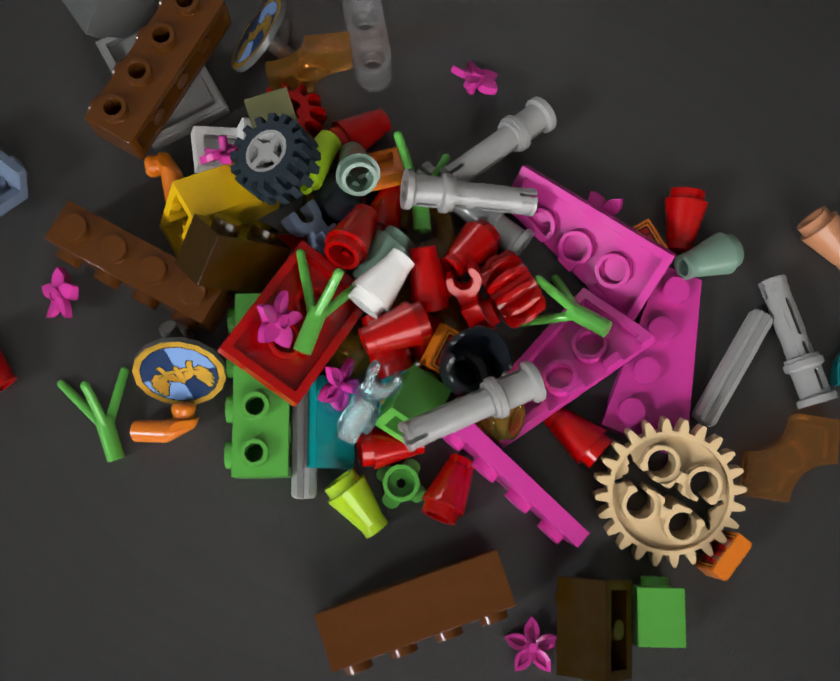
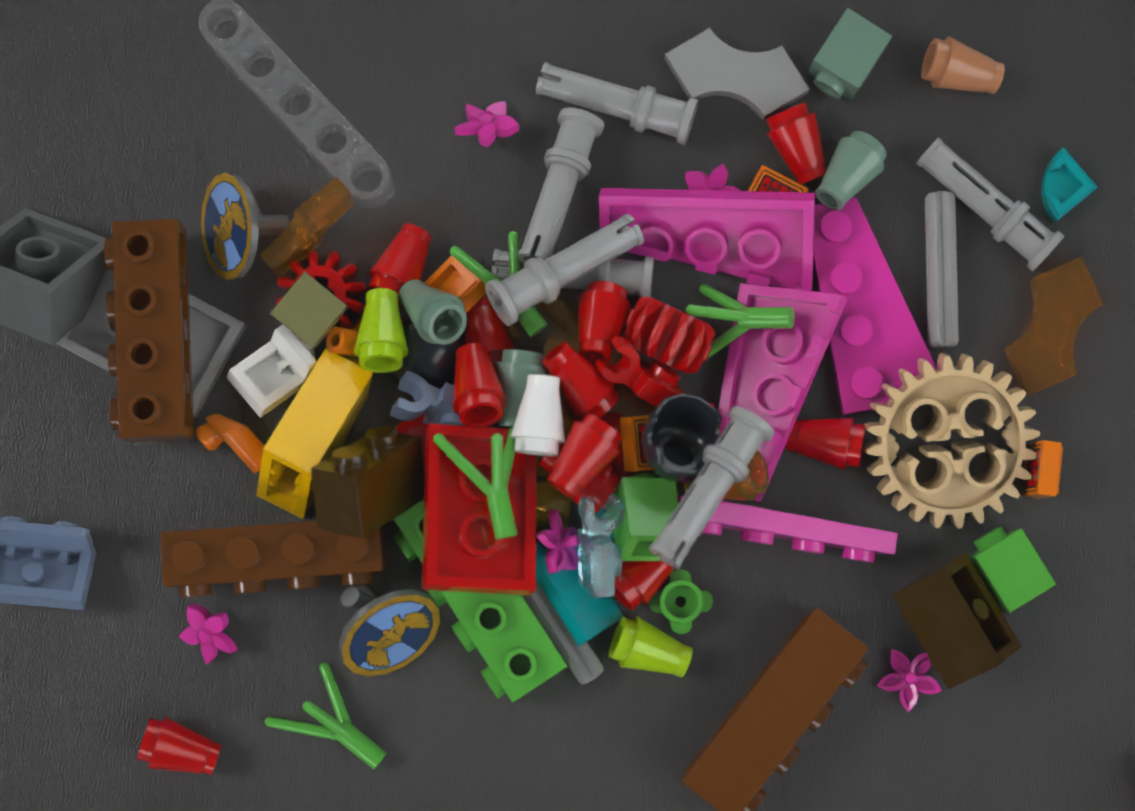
camera: 25 degrees left, 5 degrees up
(166, 430) = (413, 696): orange arm -> none
(221, 154) = (289, 379): dark pink plant -> none
(275, 159) = (334, 370): black wheel -> none
(277, 321) = (465, 523): dark pink plant -> none
(449, 491) = (733, 578): red cone -> none
(588, 130) = (642, 108): none -> light grey pin
(654, 137) = (759, 79): none -> light grey tile
(755, 181) = (848, 56): none -> sand green brick

